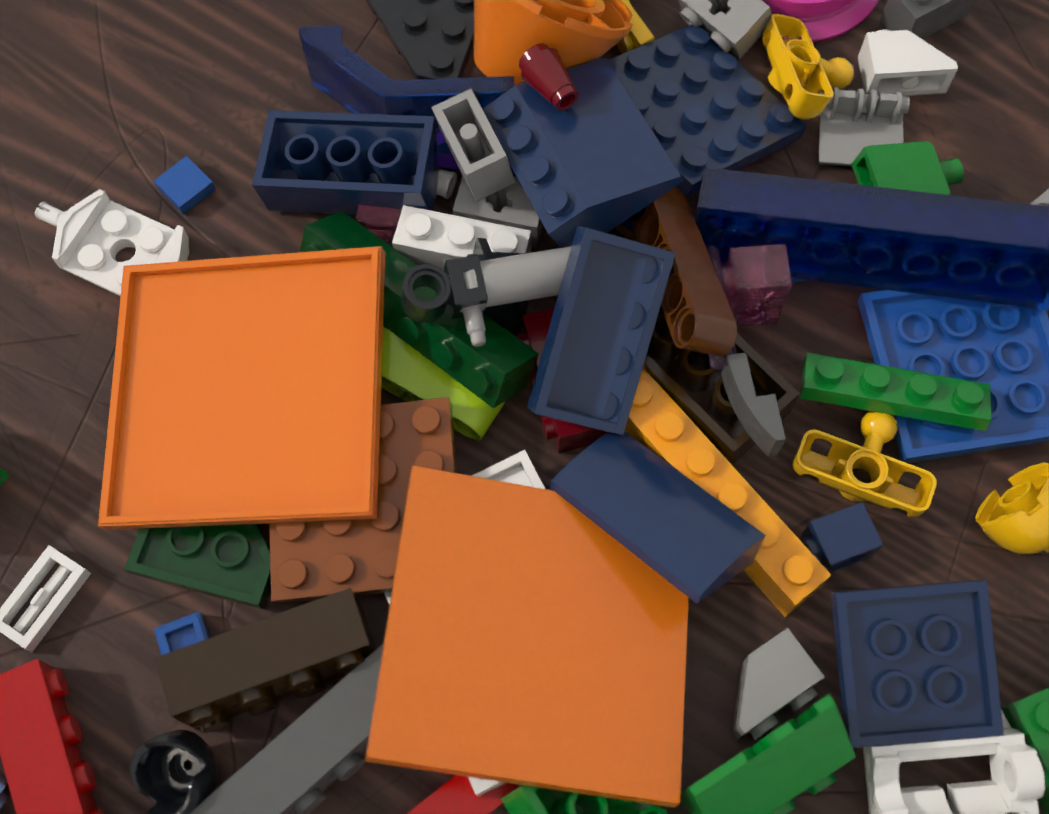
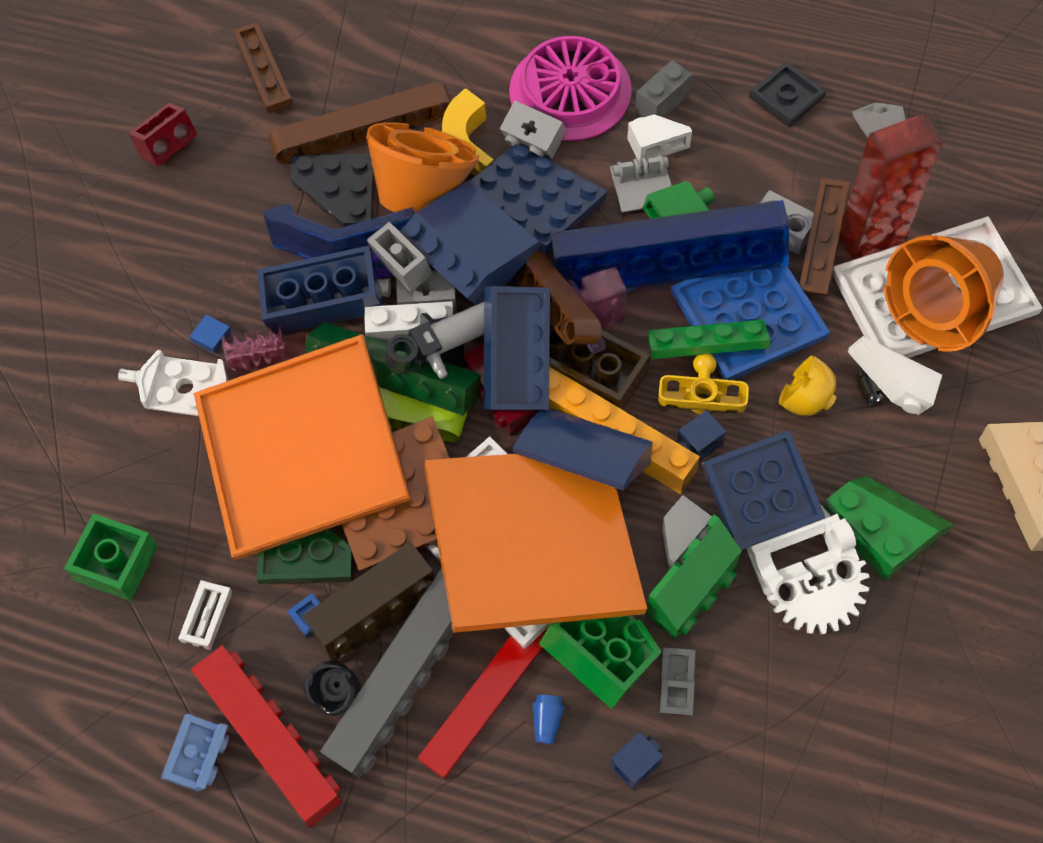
camera: 15 degrees left, 5 degrees down
(234, 226) = (254, 349): none -> clear pink piece
(379, 220) = (352, 321): clear pink tile -> none
(546, 73) = (435, 200): dark red cone -> none
(757, 414) = (625, 372): dark grey slope -> none
(799, 69) = (592, 156): yellow piece -> none

